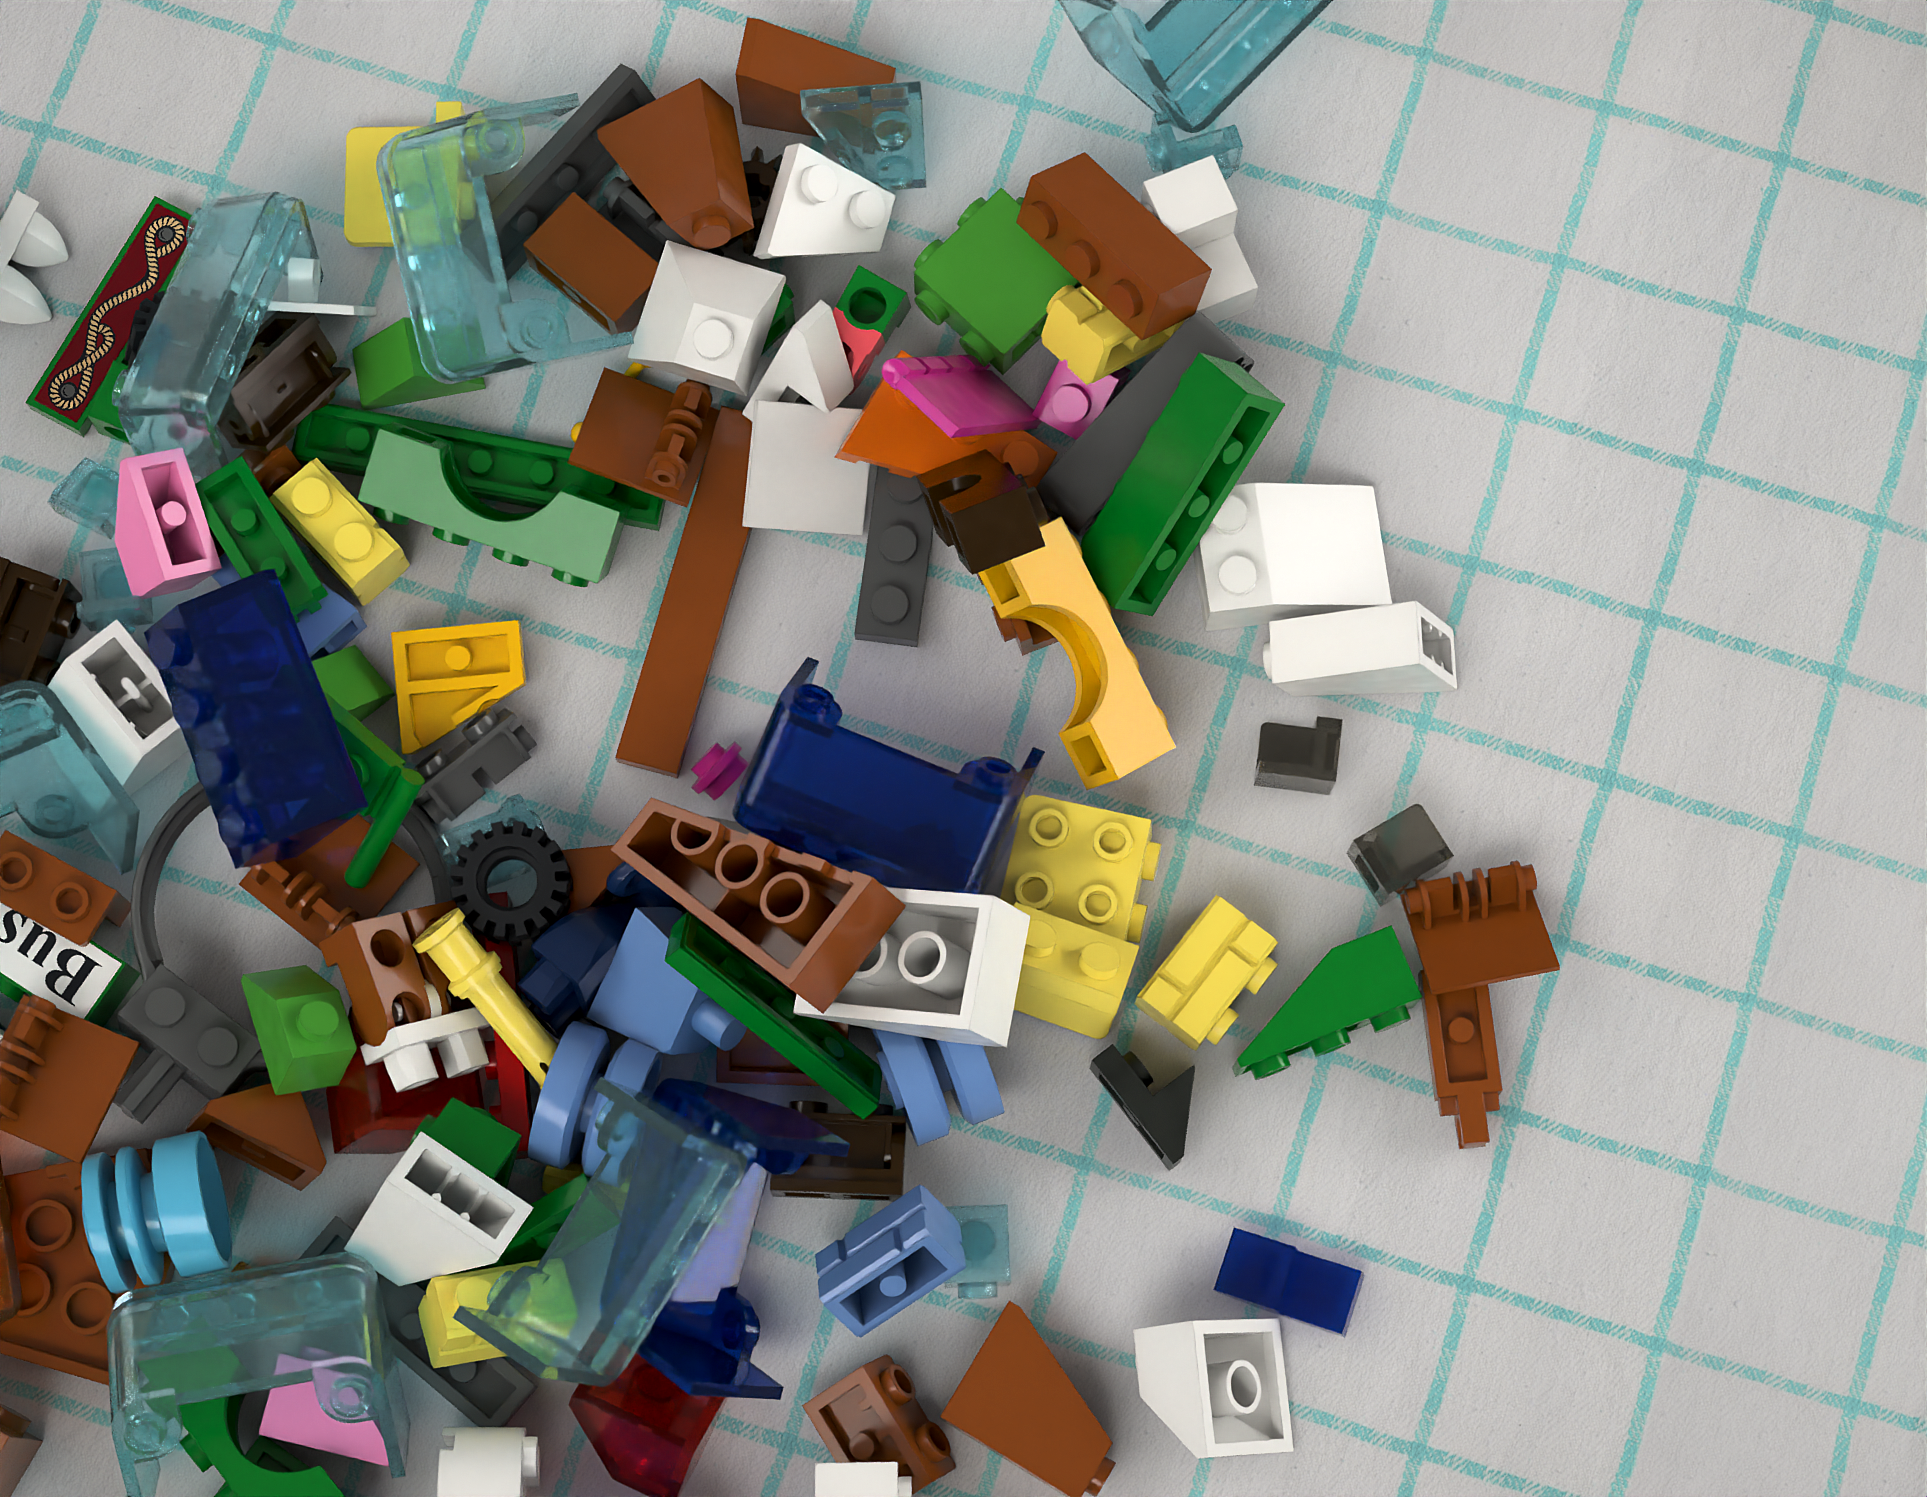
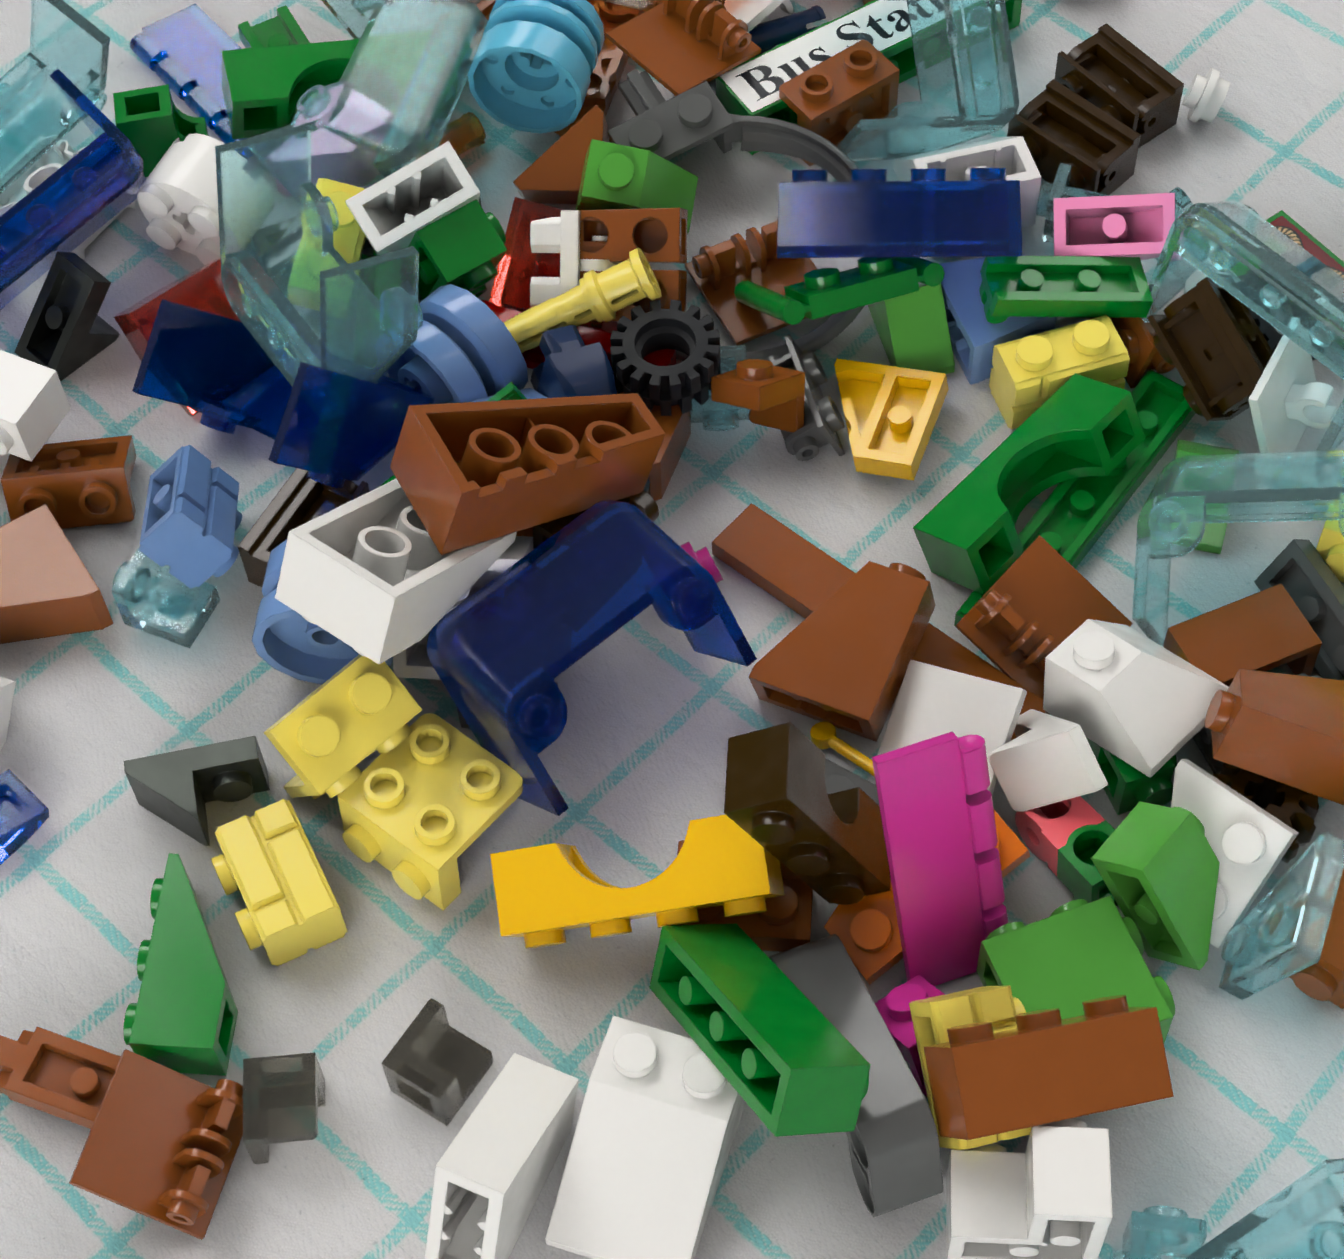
camera: 120 degrees right, 20 degrees down
(502, 783) = (769, 391): none -> dark orange bracket
(755, 582) = (850, 651): none -> dark orange slope
(832, 590) = (824, 737): none -> yellow hinge
(876, 235) = (1163, 881): none -> bright green slope

